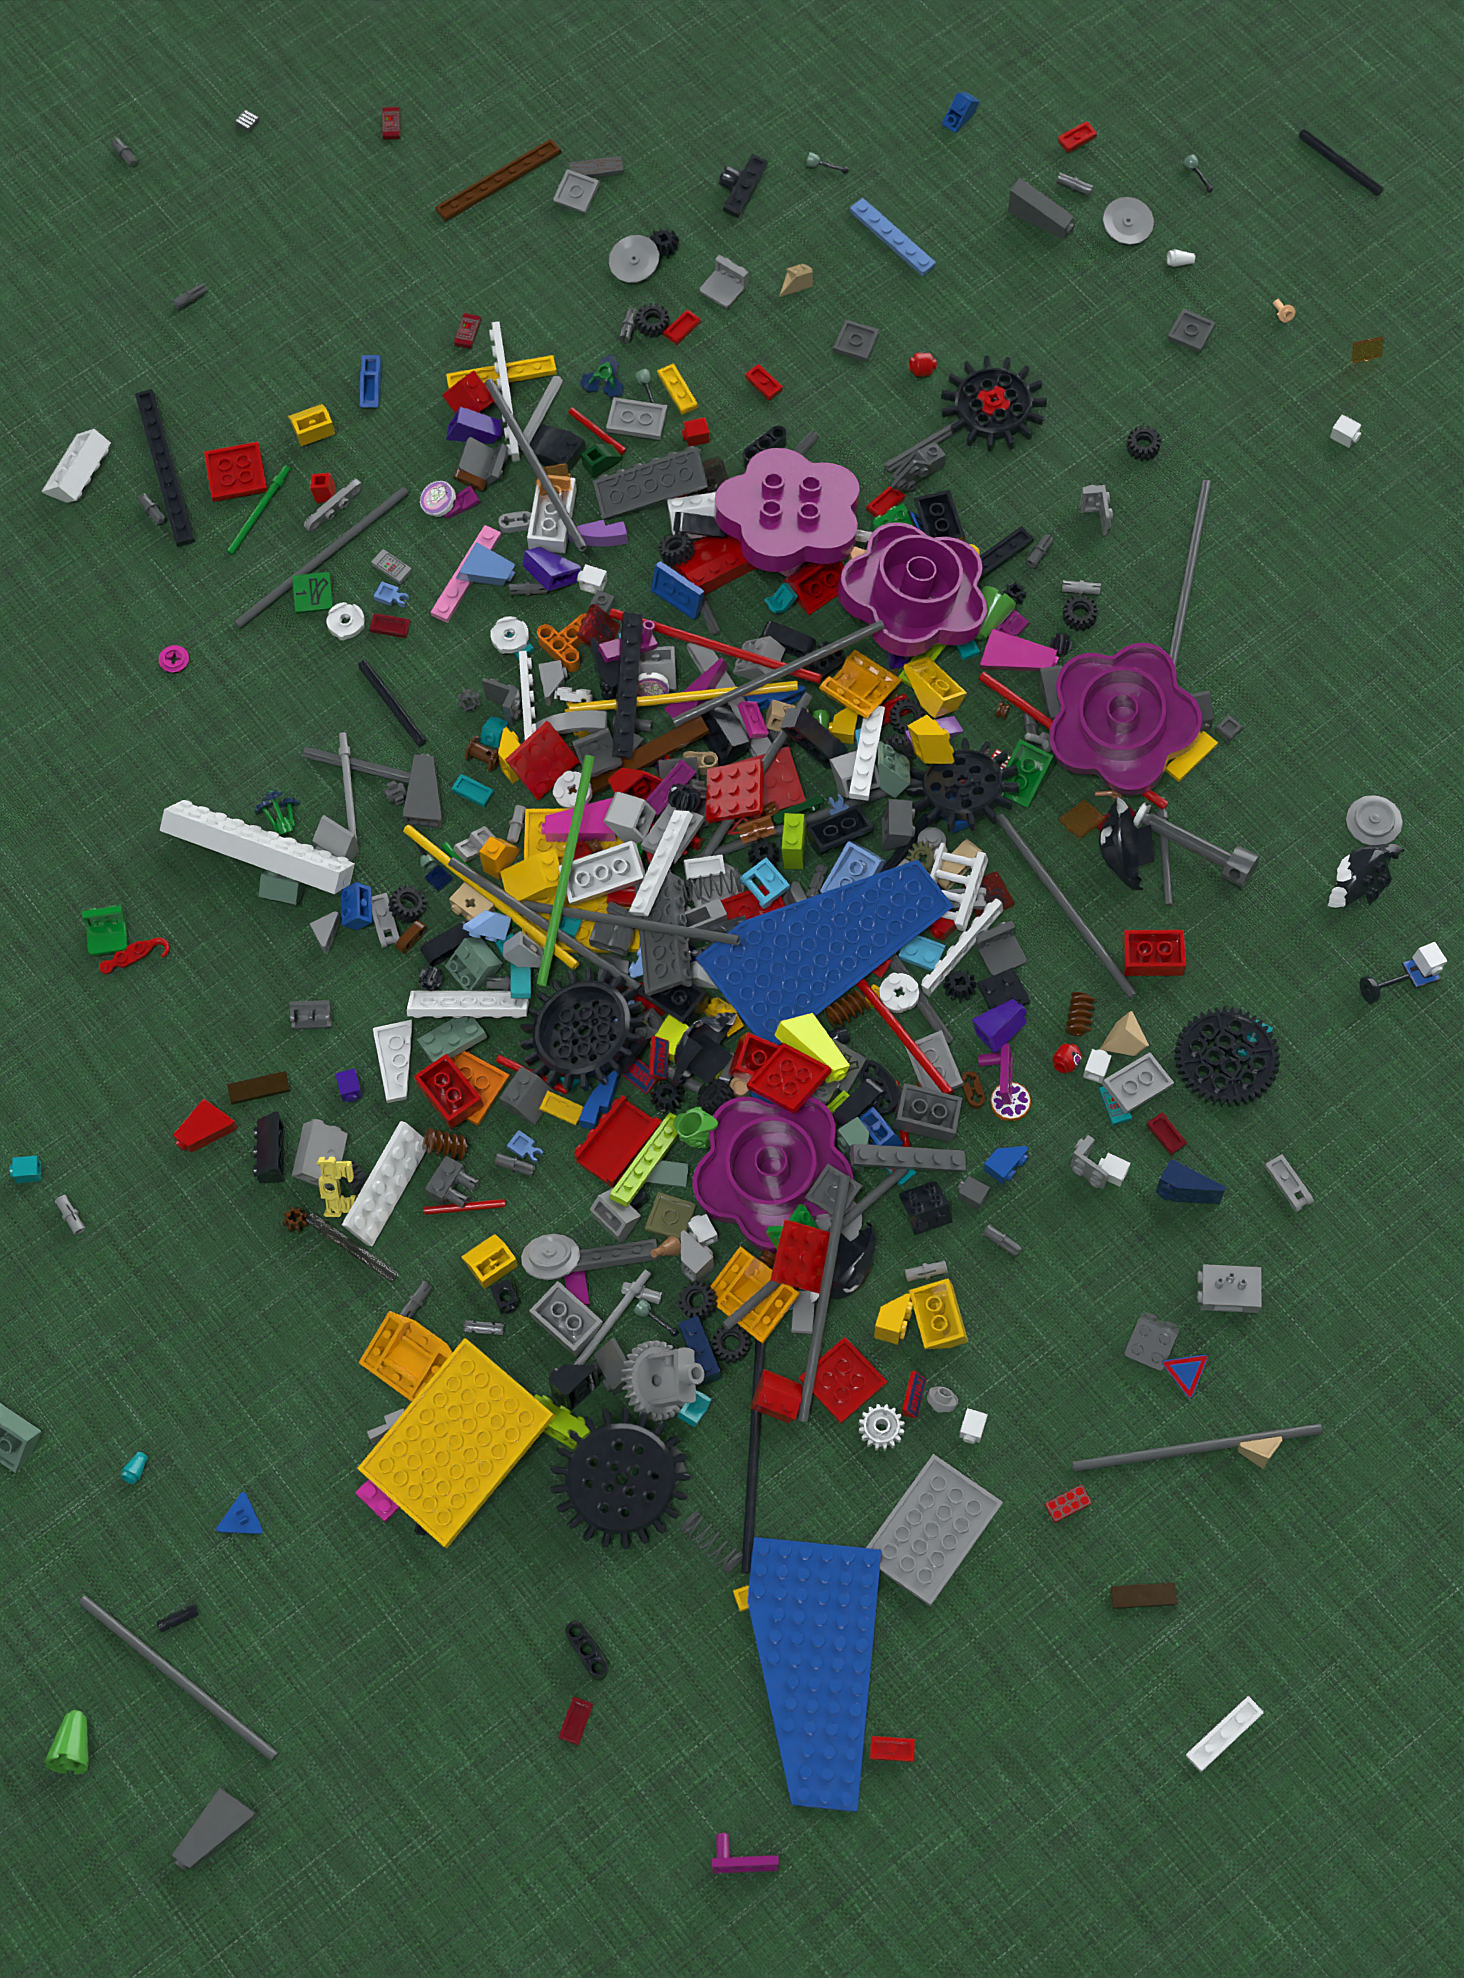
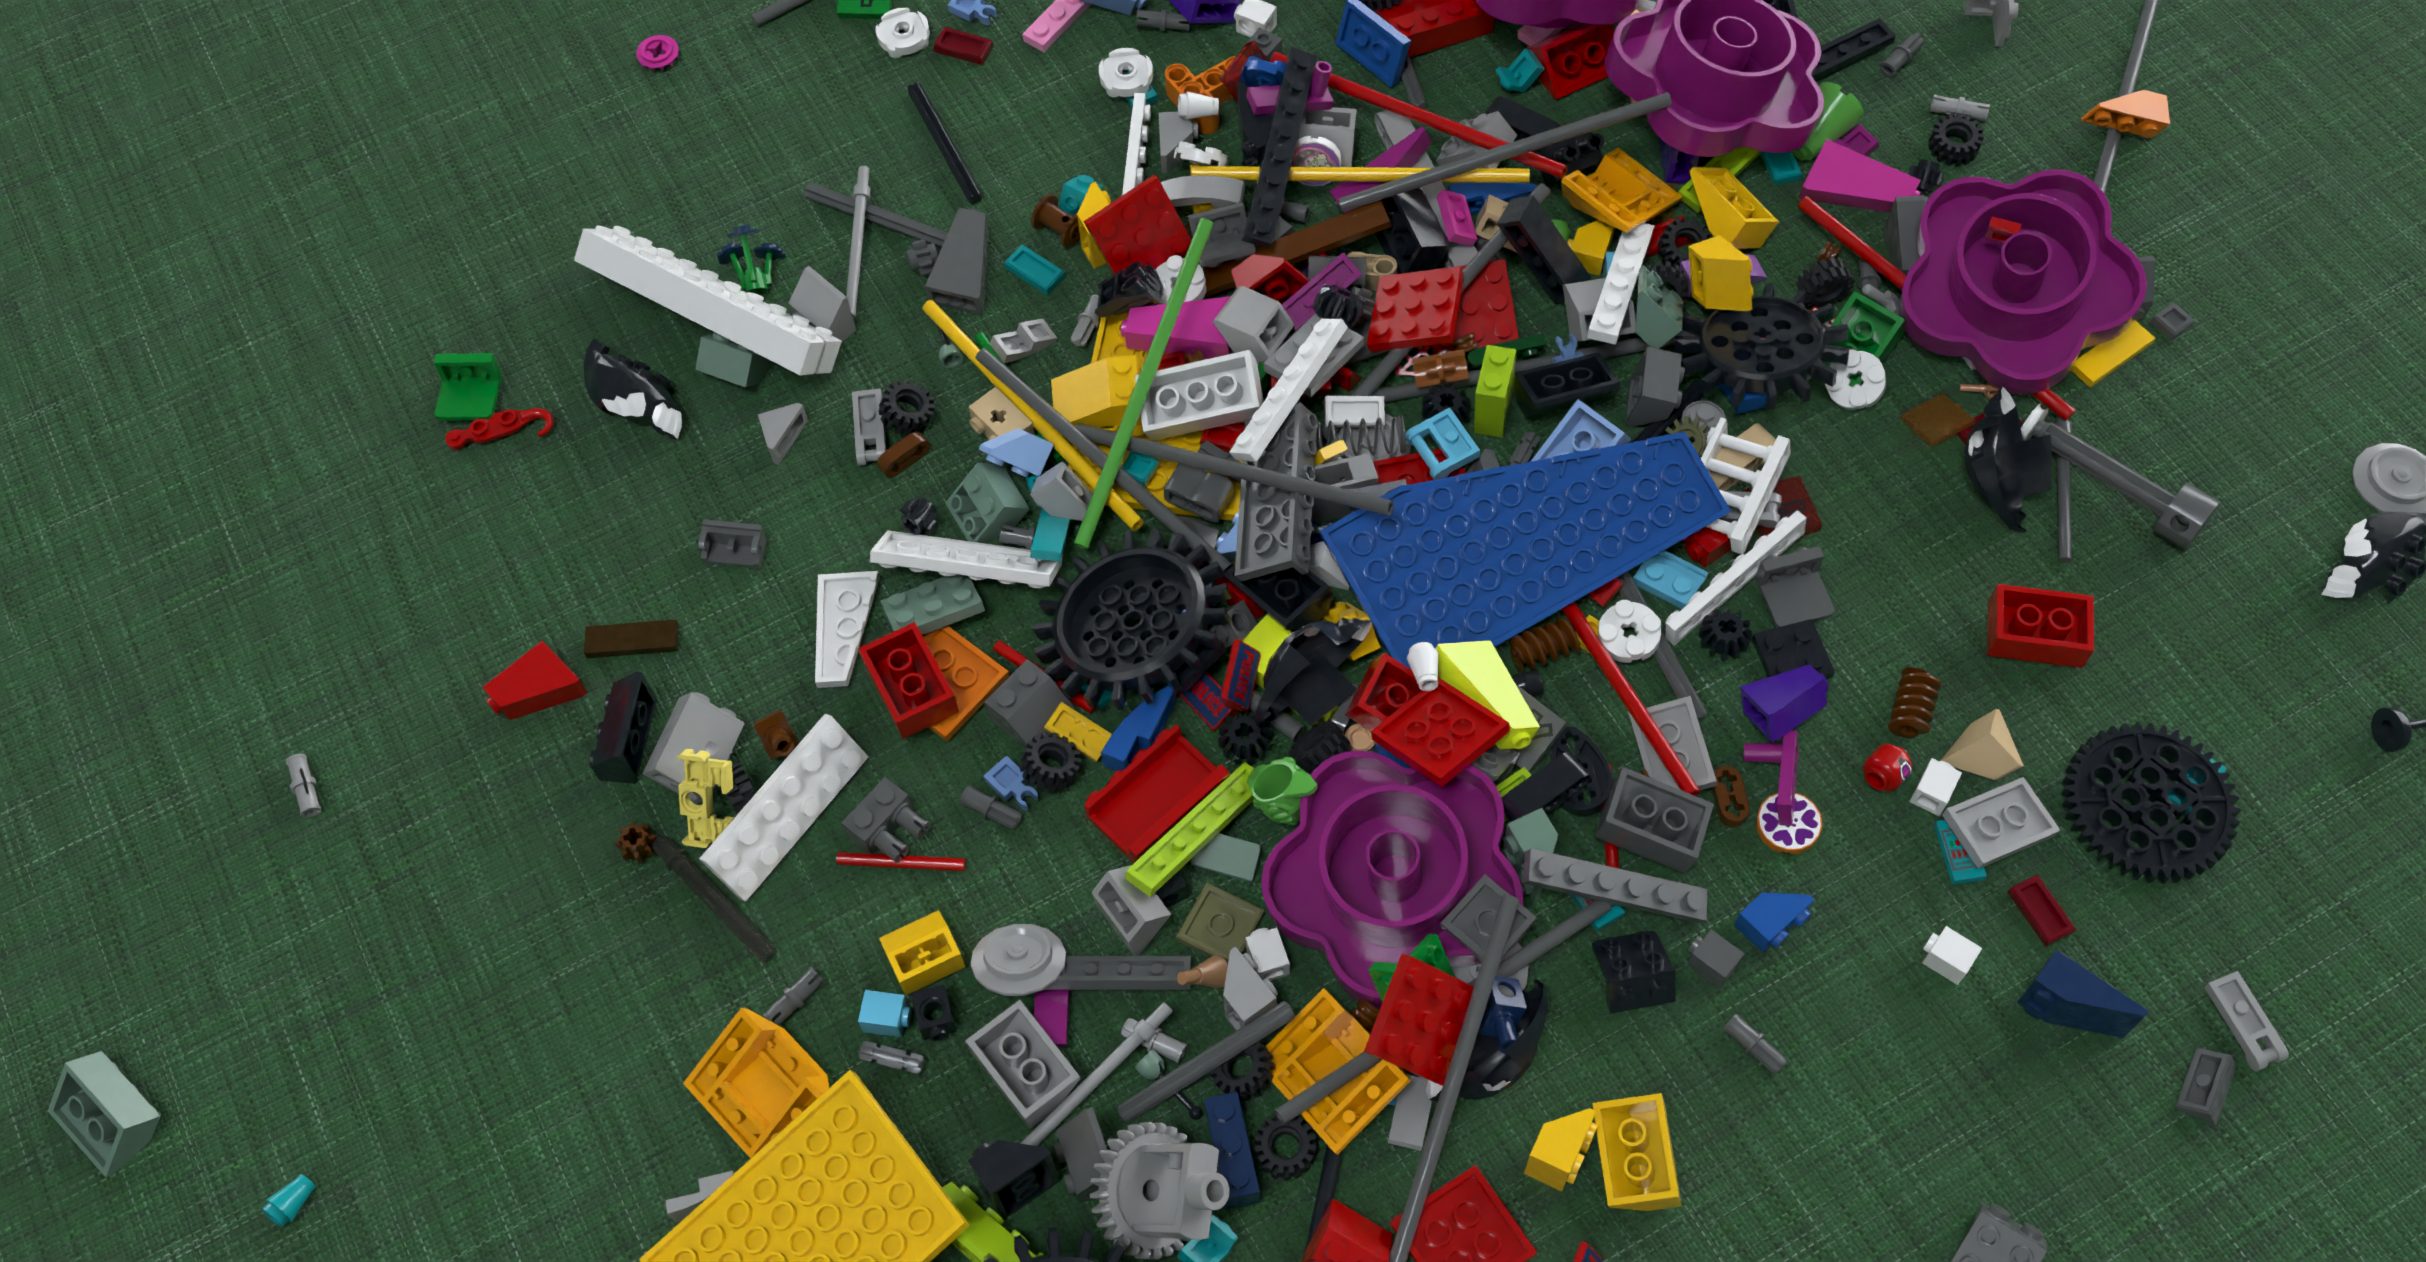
camera: 10 degrees right, 5 degrees down
(26, 1169) = (258, 708): teal brick -> none
(218, 917) = (630, 390): none -> black animal
(349, 1085) = (764, 653): dark purple brick -> none
(356, 906) = (831, 400): blue brick -> none
(371, 1139) = (776, 735): none -> reddish brown bracket
(438, 878) = (961, 380): clear blue tile -> none
(444, 945) = (945, 473): black beam -> none
(445, 1143) = (888, 759): reddish brown piece -> none
(468, 705) = (1059, 147): dark grey gear -> none
(474, 1302) = (884, 1013): none -> medium azure brick
(497, 856) = (1049, 356): light orange slope -> none
(507, 696) = (1103, 147): dark grey bracket -> none
(541, 801) = (1129, 289): none -> black slope
(544, 1139) = (1044, 775): none -> black tyre
(564, 657) = (1196, 105): none -> white cone
(608, 631) = (1262, 72): none -> blue plate
(676, 1301) = (1206, 1061): none -> dark grey axle
(693, 901) = (1330, 452): none -> yellow tile
(773, 1035) = (1424, 665): none -> white cone
(850, 1245) = (1504, 1013): none -> dark blue bracket
(879, 1129) = (1575, 834): blue brick -> none
(926, 1271) = (1623, 1075): light grey pin -> none
(1001, 733) = (1826, 282): none -> black tyre
(1017, 590) = (1866, 98): black gear -> none
(1031, 809) = (1858, 396): none -> white plate
(1066, 906) = (1906, 545): dark grey piece -> none
(1083, 1166) = (1908, 944): light grey bracket -> none
(1107, 691) = (2001, 229): none -> red tile
(1197, 579) = (2136, 113): none -> orange slope
(1229, 1288) = (2139, 1184): light grey piece -> none
(1268, 1225) = (2206, 1085): none -> dark grey slope

